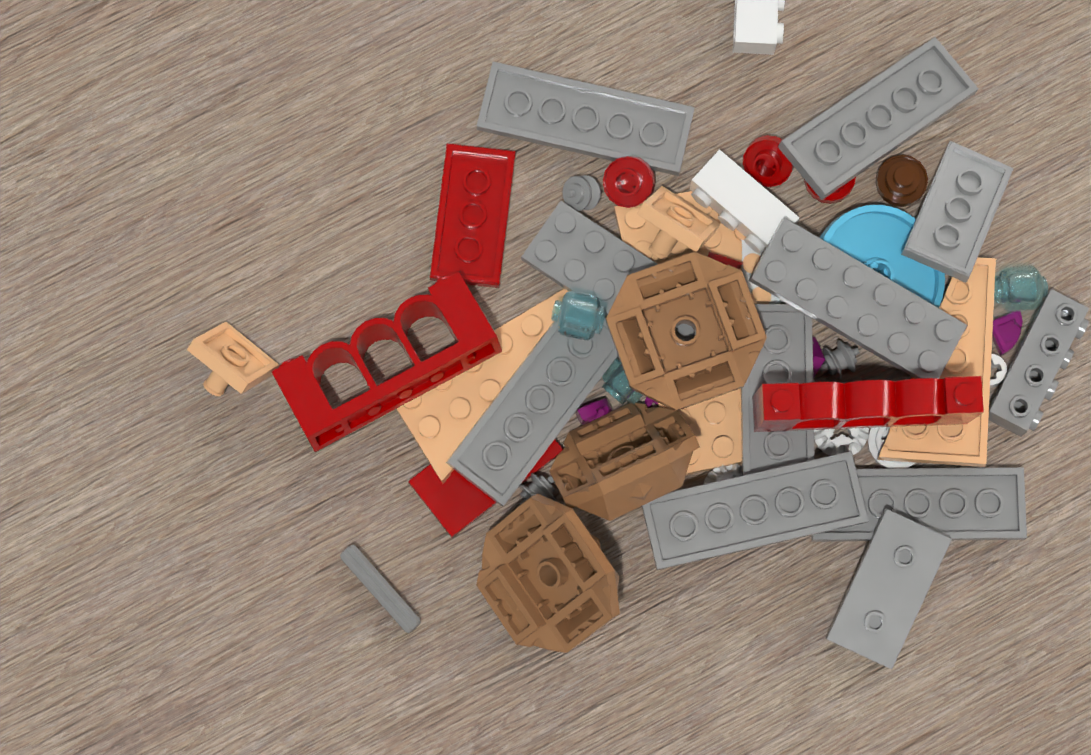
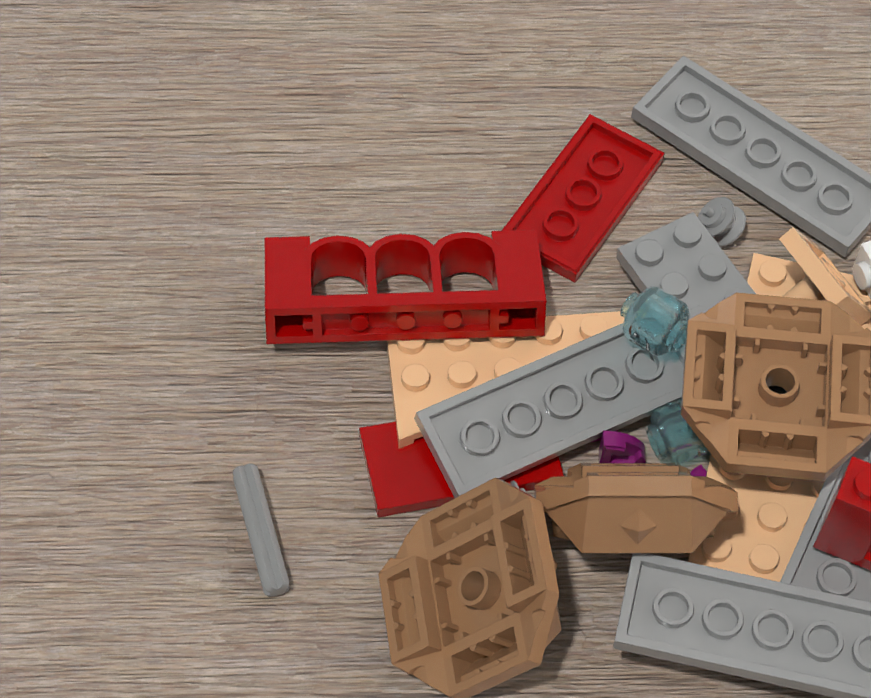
camera: 25 degrees right, 20 degrees down
(231, 359) = (226, 206): light nougat tile -> none
(628, 181) = (774, 221): red plate -> none

